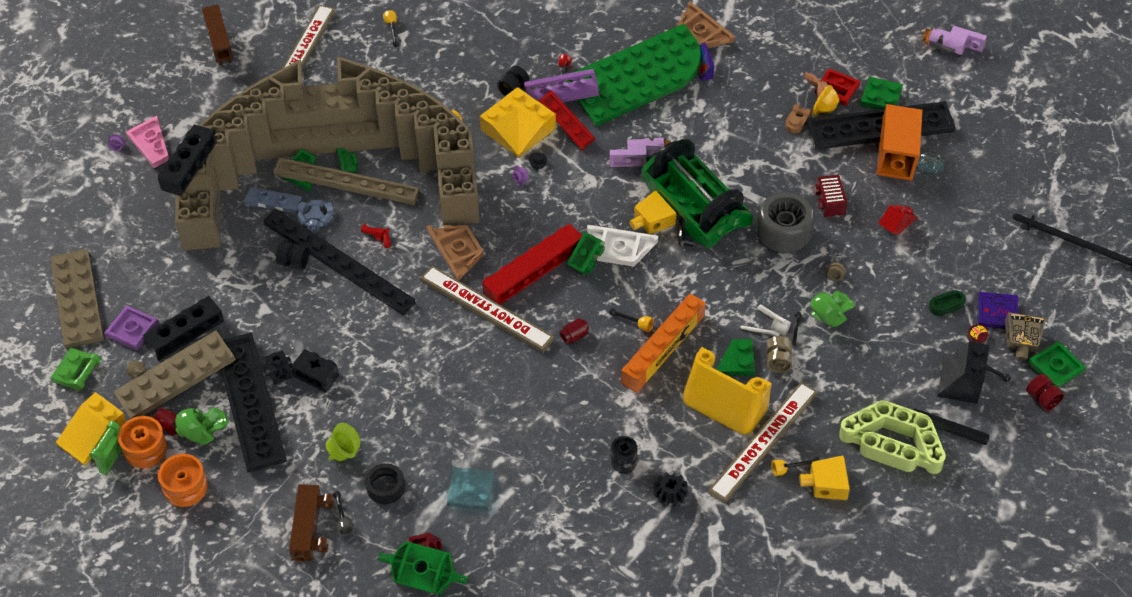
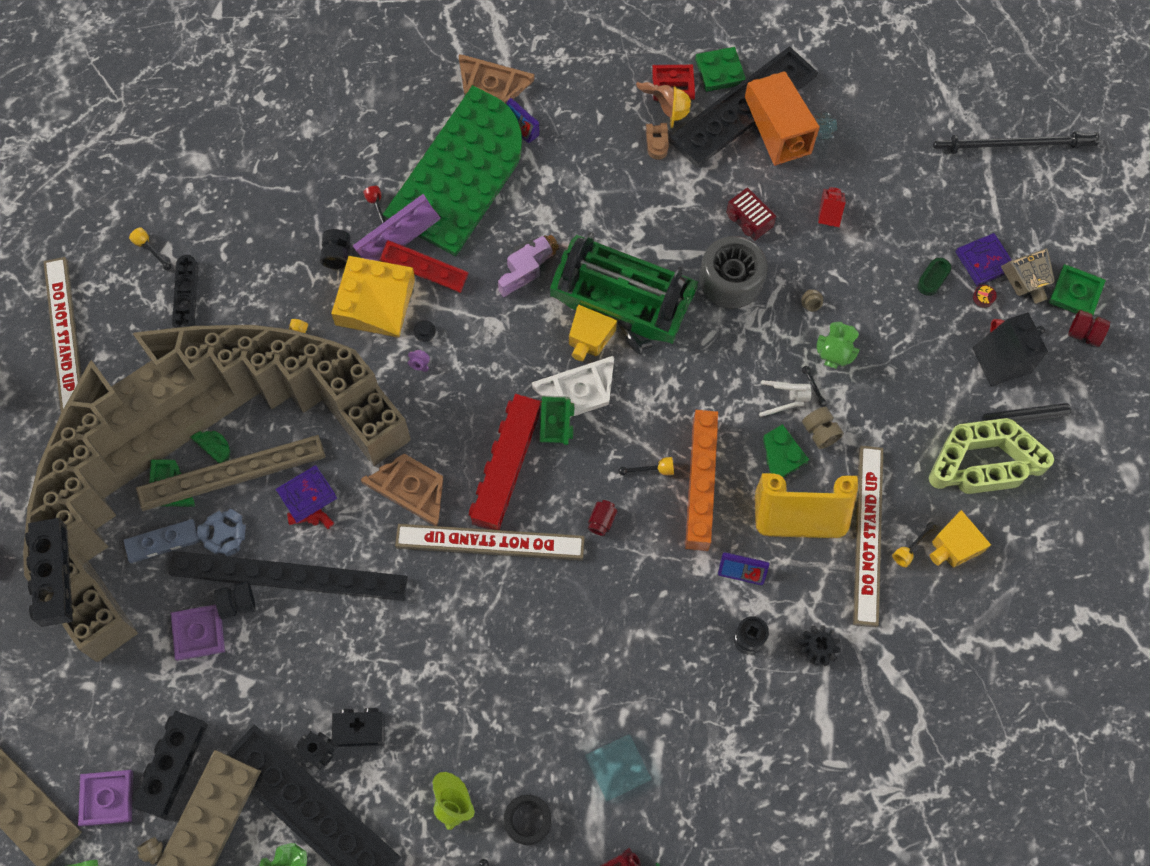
camera: 35 degrees left, 15 degrees up
(255, 264) = (197, 632): none -> medium lavender tile
(384, 217) = (306, 493): none -> dark purple tile
(401, 52) = (185, 294): none -> black beam
(652, 413) = (743, 568): none -> slope

